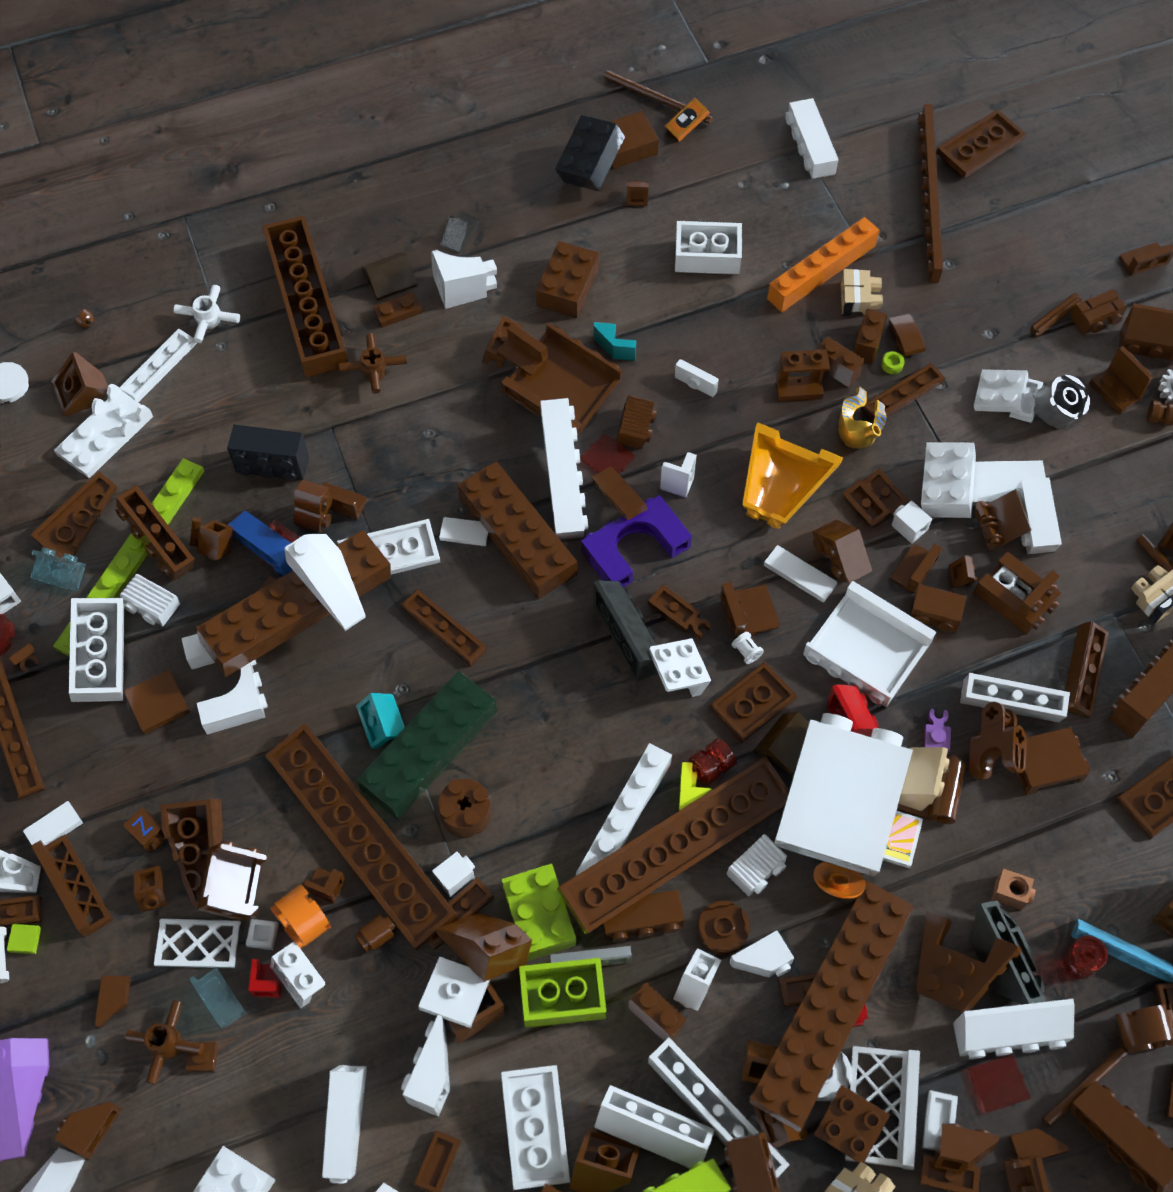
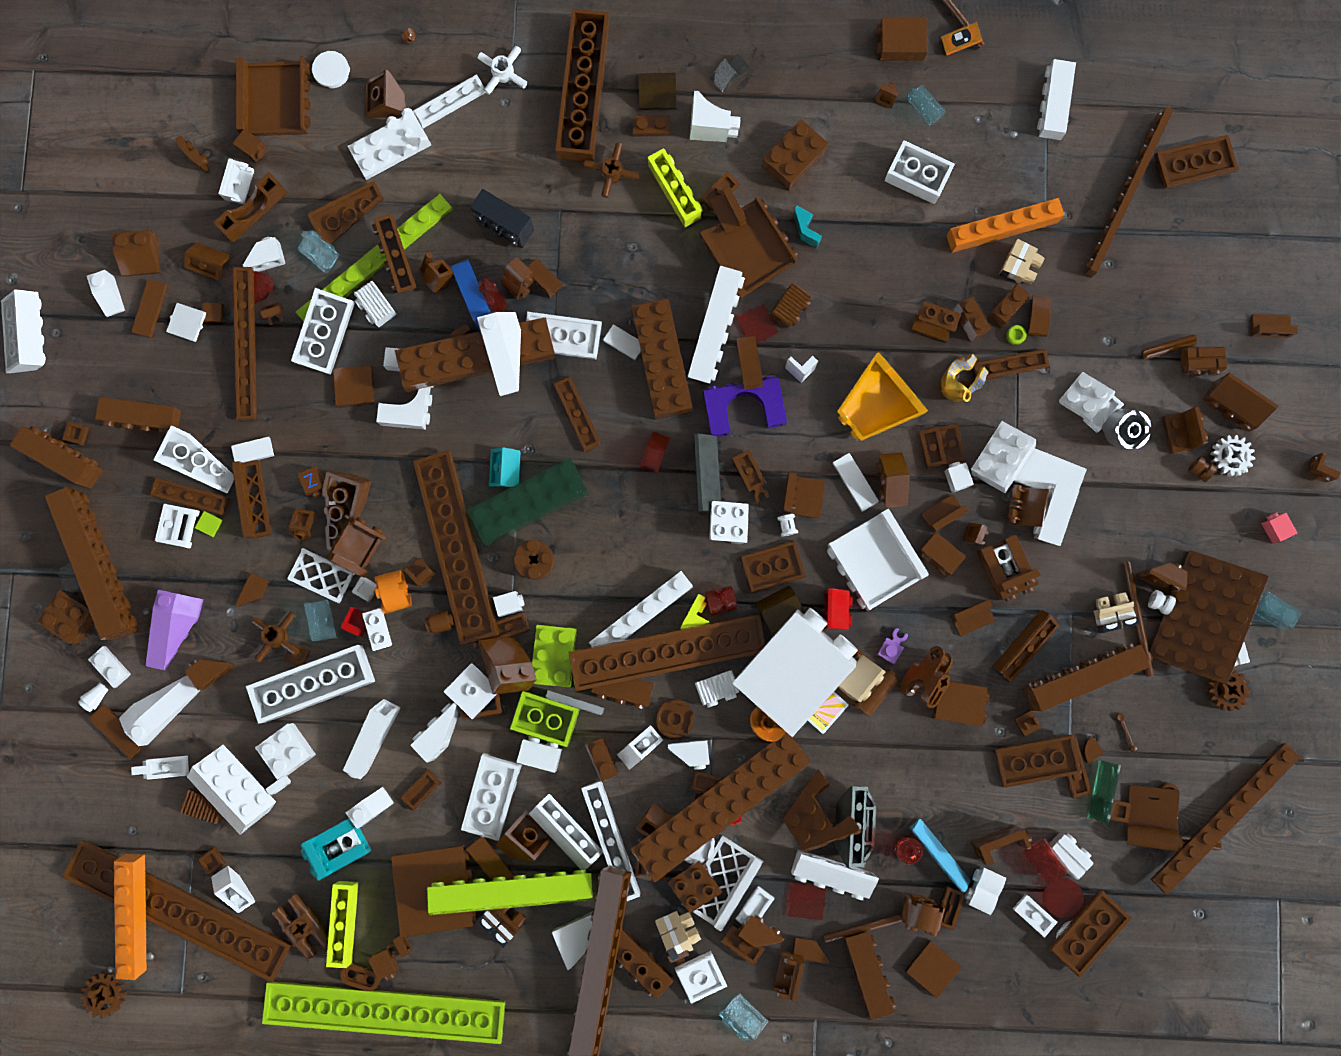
camera: 25 degrees right, 20 degrees up
(233, 1083) = (310, 684): none -> white brick
(451, 354) = (674, 188): none -> neon yellow brick
(555, 633) = (655, 452): none -> clear red slope
(575, 1043) = (539, 754): none -> white brick
(590, 153) = (864, 43): black brick -> none
(681, 189) = (926, 104): none -> clear light blue panel
(696, 378) = (854, 286): white plate -> none
(1005, 896) = (877, 777): nougat brick -> none
(1010, 660) = (973, 618): none -> reddish brown panel
(1015, 696) = (960, 648): white brick -> none
(1136, 752) = (1027, 723): none -> reddish brown tile

